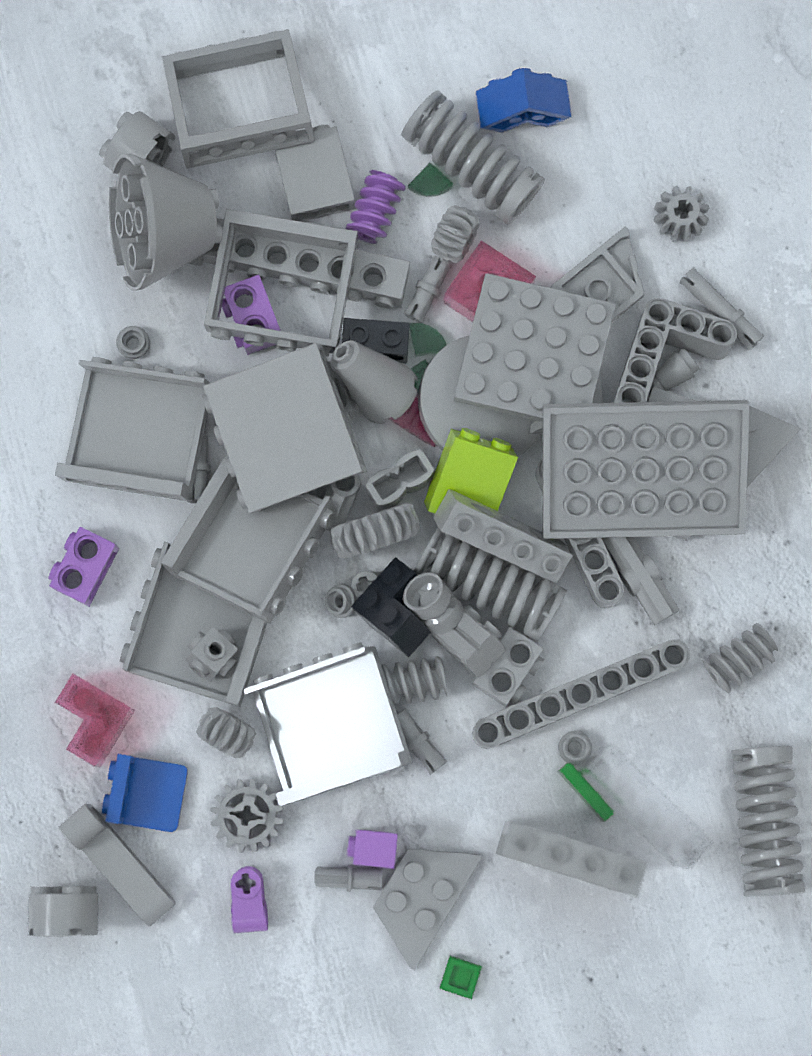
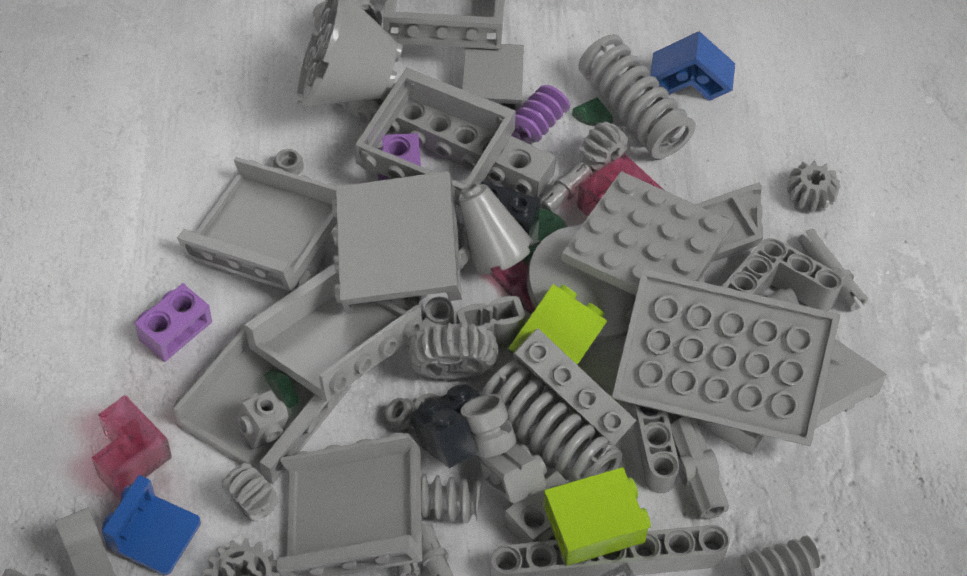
camera: 15 degrees right, 25 degrees down
(216, 608) = (282, 387): none -> clear green tile
(561, 669) = (596, 516): none -> lime brick

